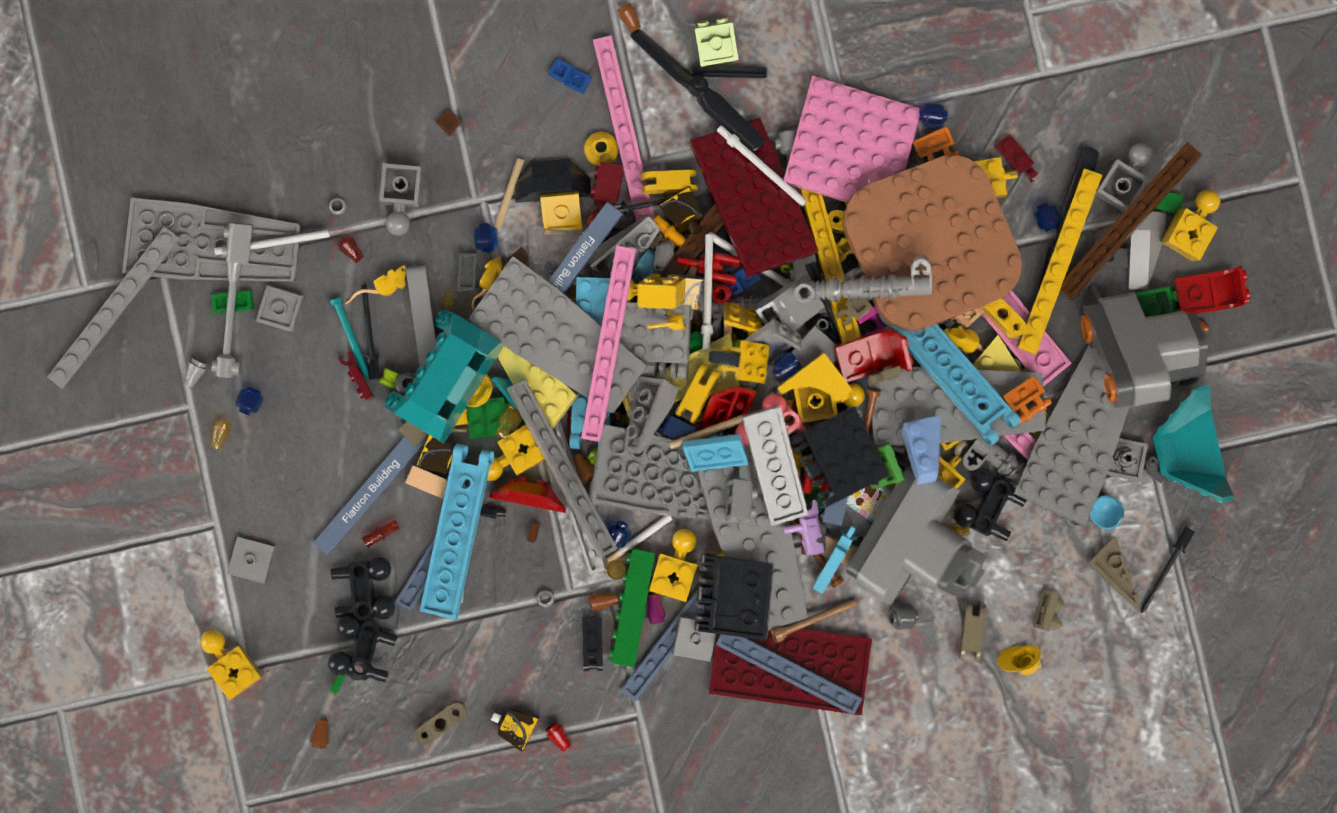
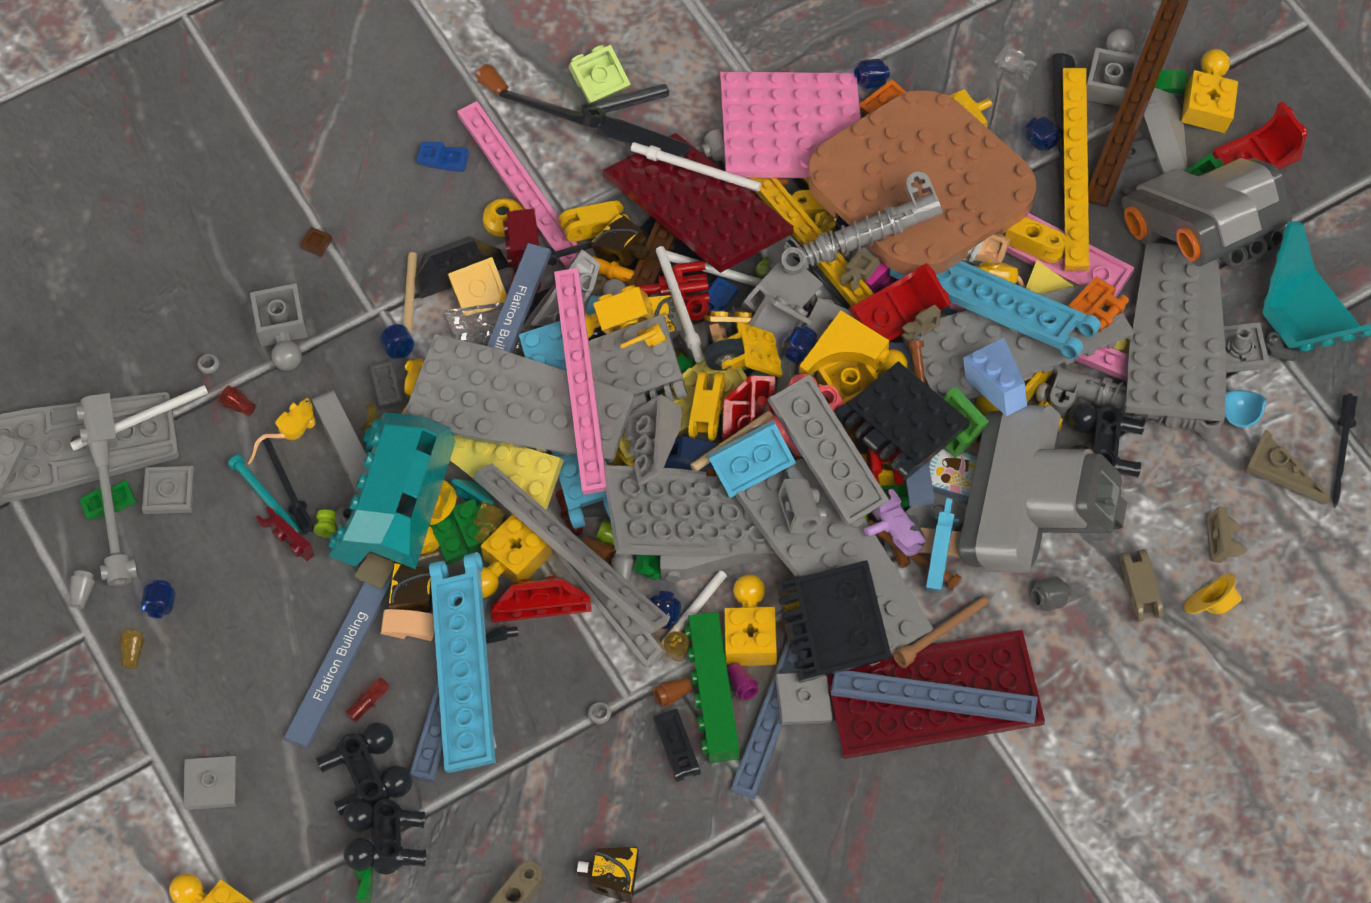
camera: 15 degrees left, 25 degrees down
(533, 532) = (559, 639): reddish brown tile -> none
(558, 736) = (670, 867): red cone -> none
(1016, 157) = (983, 88): dark red plate -> none

